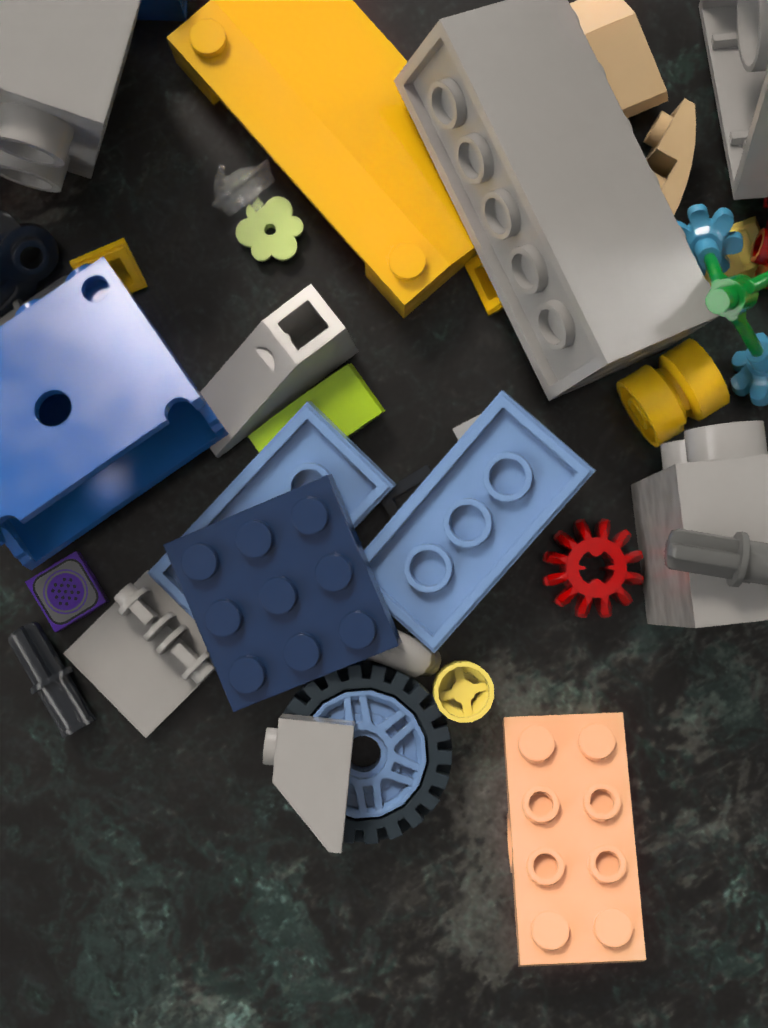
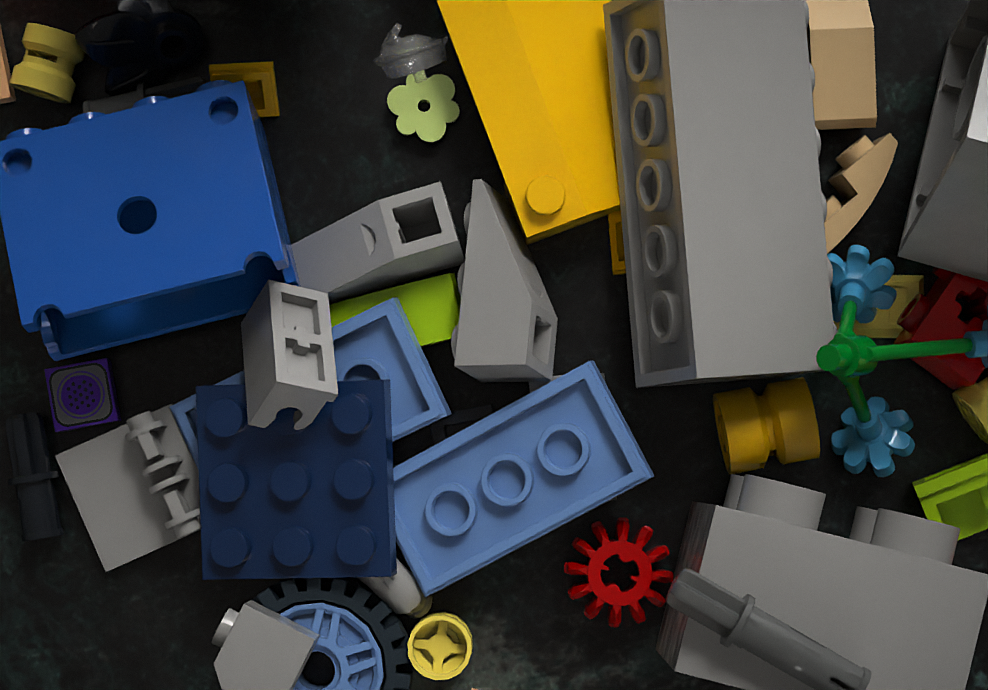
camera: 25 degrees right, 0 degrees up
(234, 485) = (288, 354): none -> light grey hinge
(409, 377) = (504, 310): none -> light grey slope

